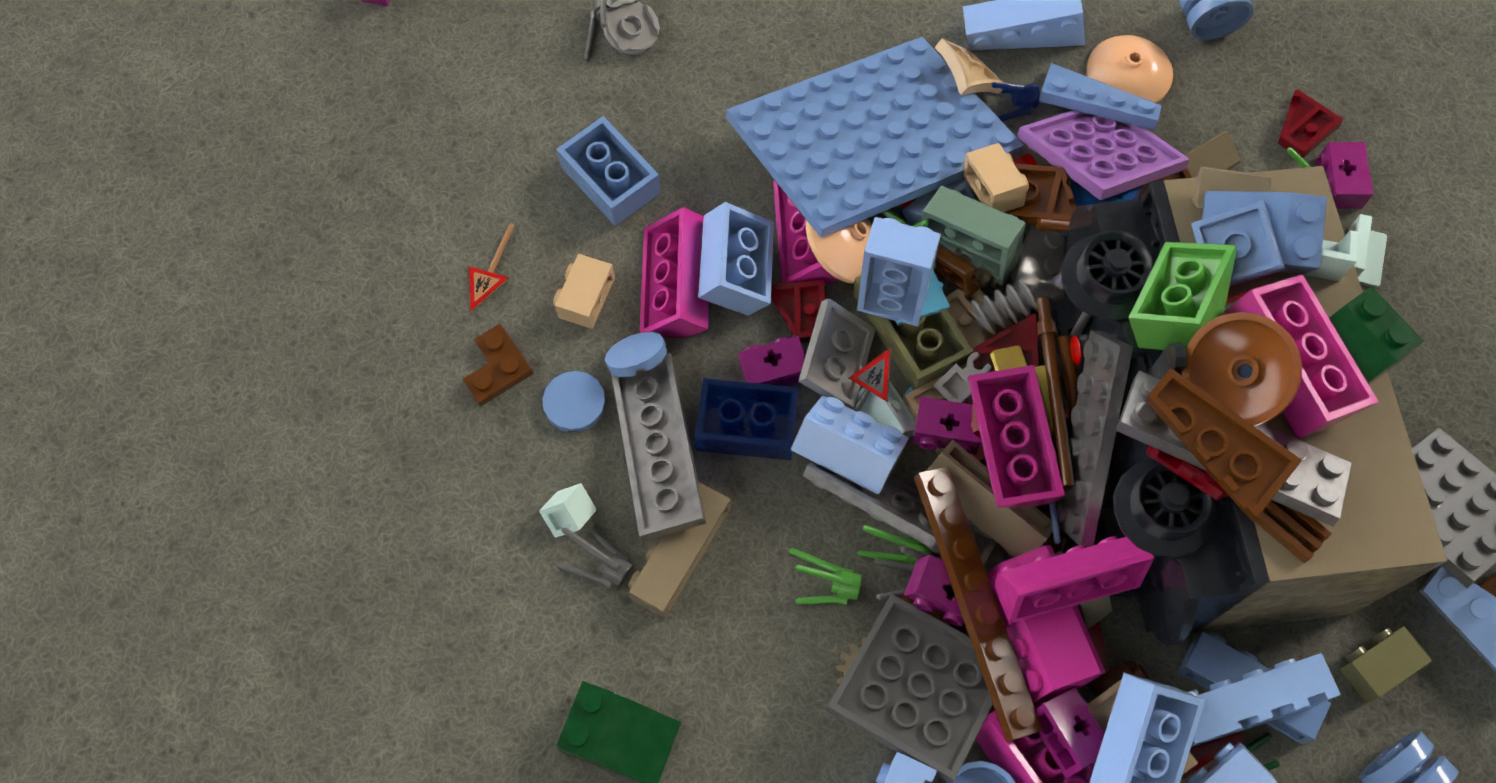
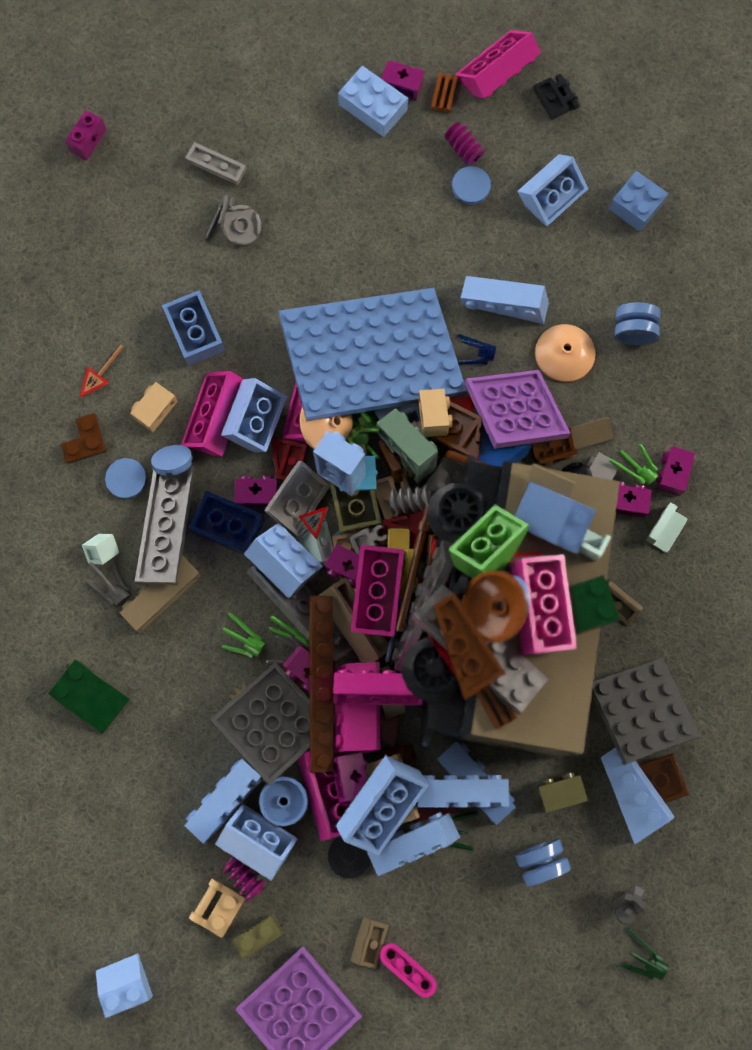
camera: 15 degrees right, 10 degrees up
(968, 70) = (452, 323): tan plate -> none
(1093, 97) = (527, 365): medium blue wing -> none
(1252, 234) = (541, 518): medium blue tile -> none
(1307, 124) = (666, 427): dark red wing -> none

